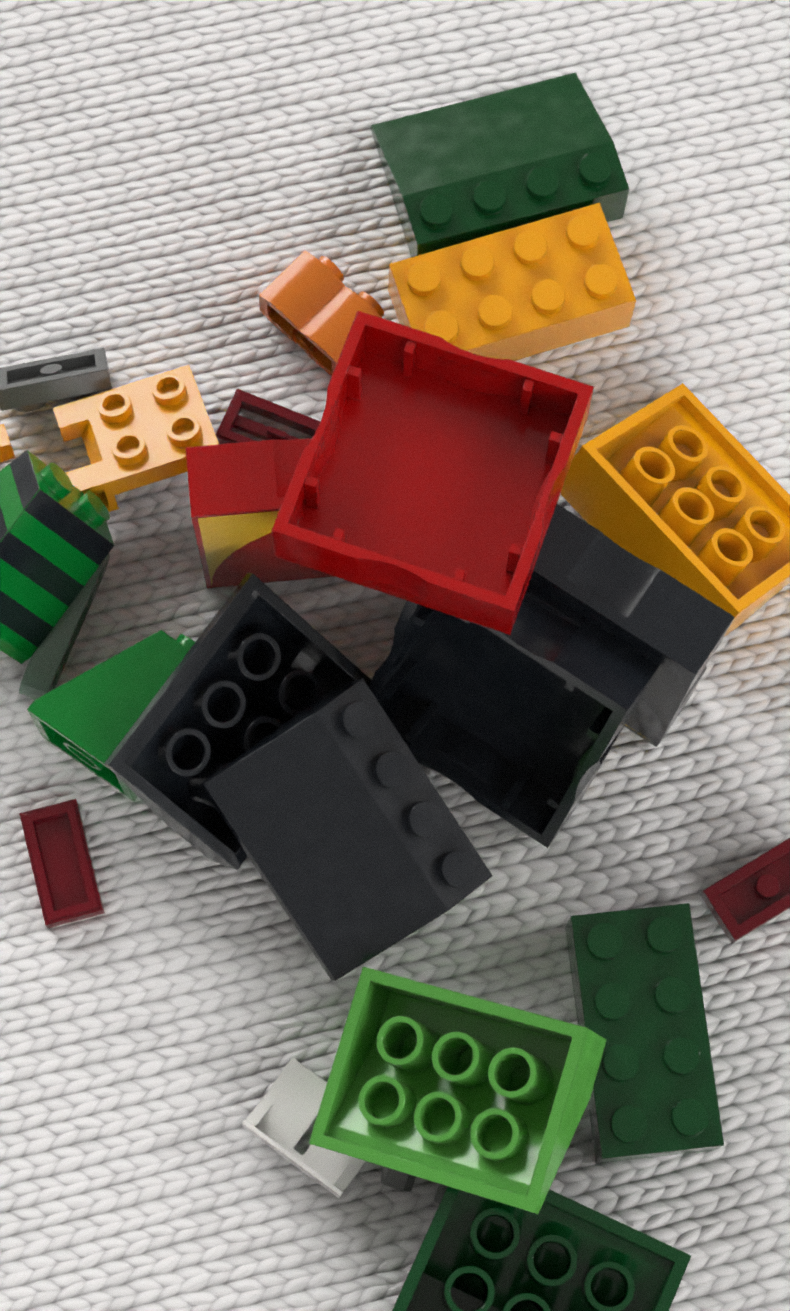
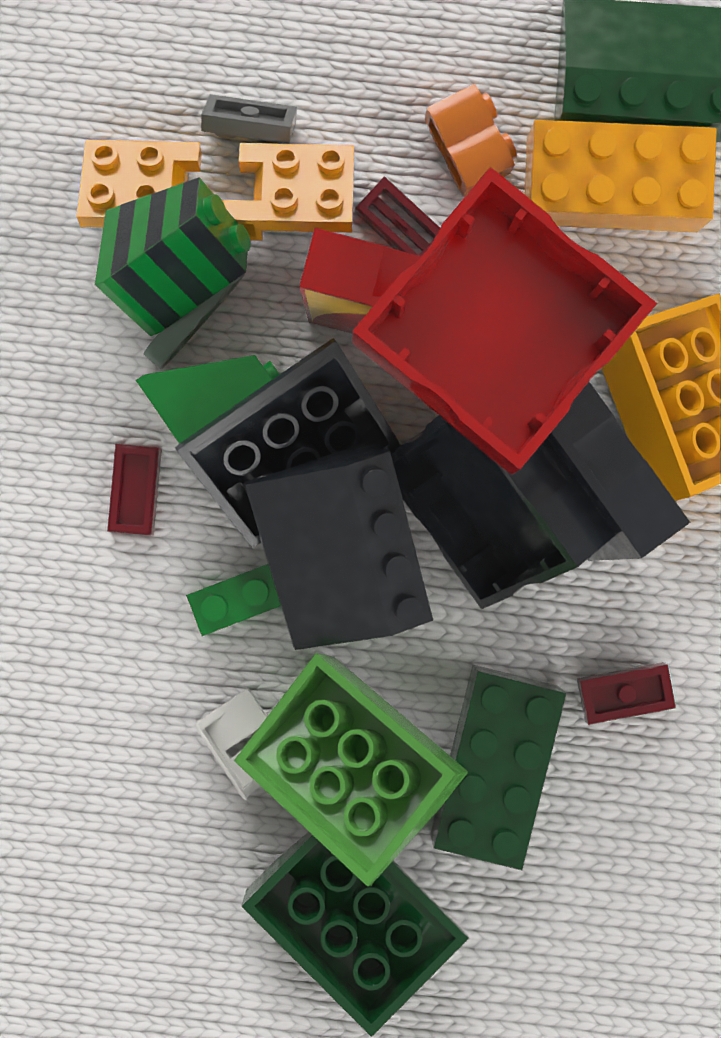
camera: 25 degrees right, 15 degrees up
(237, 952) = (234, 600): none -> green plate

